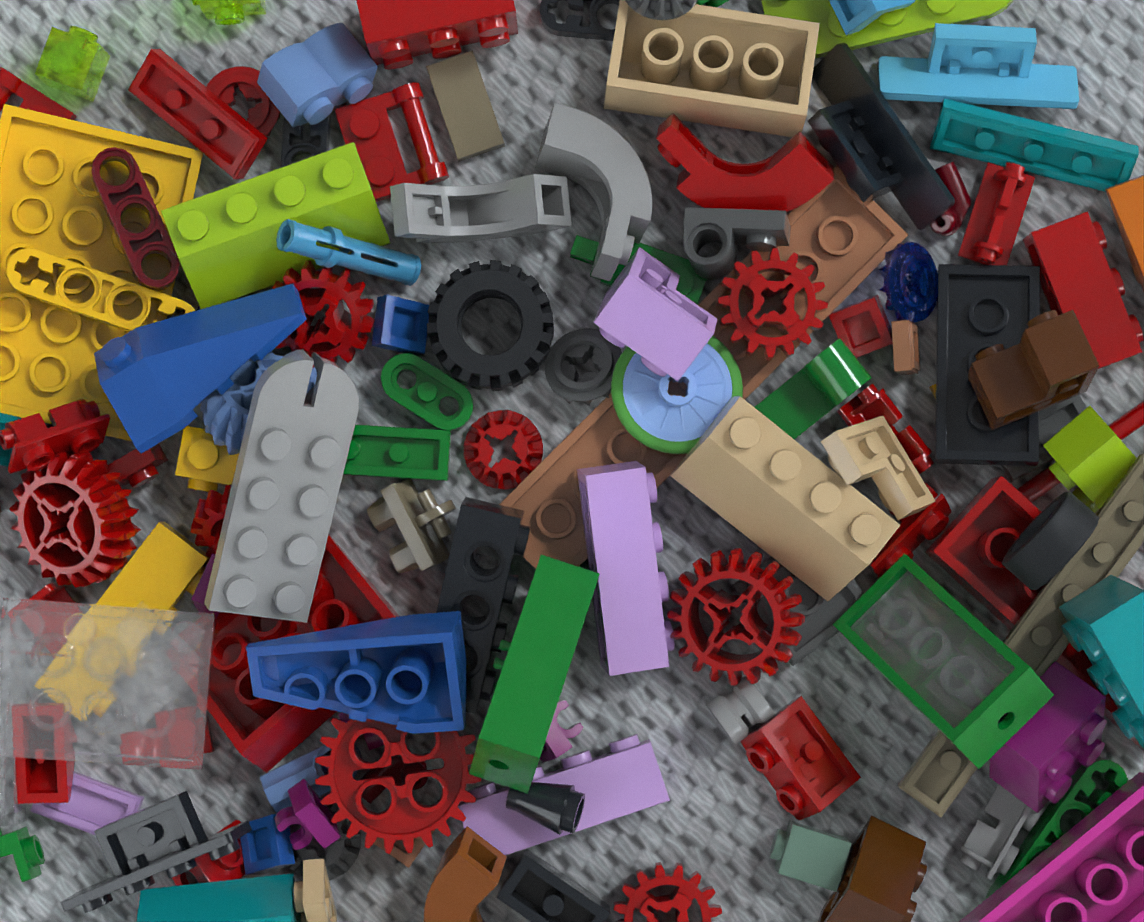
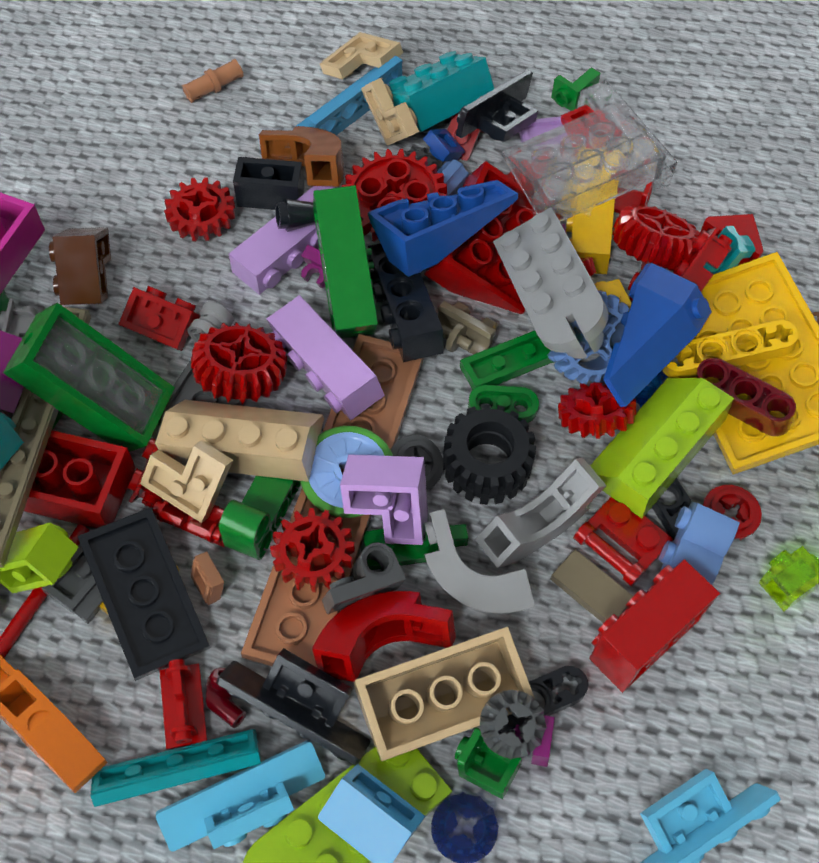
camera: 145 degrees right, 25 degrees down
(197, 114) = (754, 488): red tile -> none
(302, 240) = (616, 436): dark azure pin -> none
(310, 814) = (434, 151): magenta tile -> none
(400, 325) = (547, 430): blue plate -> none
(499, 425) = (449, 406): red gear -> none
(810, 855) = (128, 270): sand green brick -> none
(863, 326) = (244, 577): red plate -> none
(921, 283) = (218, 633): clear blue gear -> none
(1040, 371) = (103, 583): reddish brown brick -> none
(1050, 541) = (44, 470): black tyre -> none
(1080, 280) = (92, 679): red brick -> none

